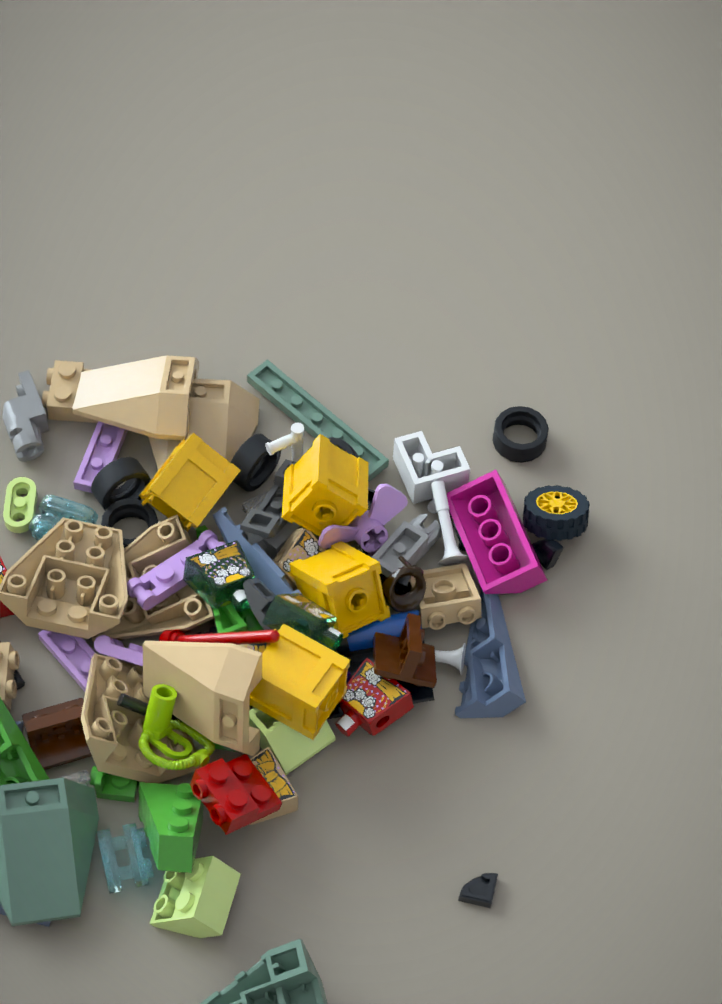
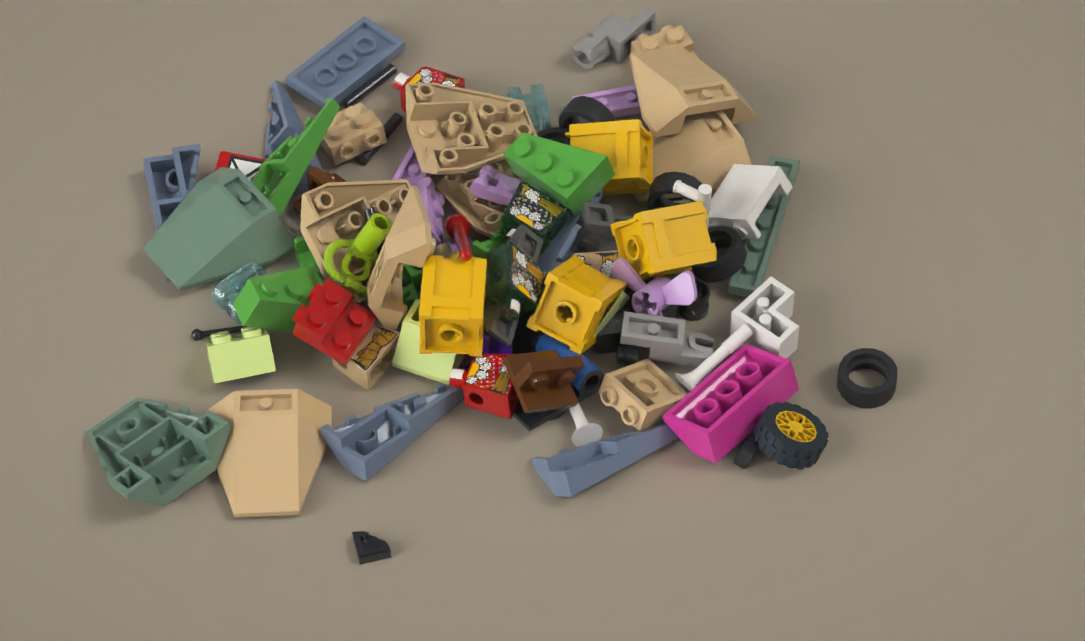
camera: 65 degrees right, 5 degrees down
(20, 507) = (527, 74): yellowish green plate -> none
(138, 926) = (197, 334): none -> black hinge
(192, 525) = (559, 169): none -> bright green wedge
(293, 402) = (745, 195): none -> white panel
(340, 922) = (271, 449): none -> tan wedge
(363, 826) = (376, 439): none -> sand blue wedge
(408, 601) = (602, 351): dark brown piece -> none

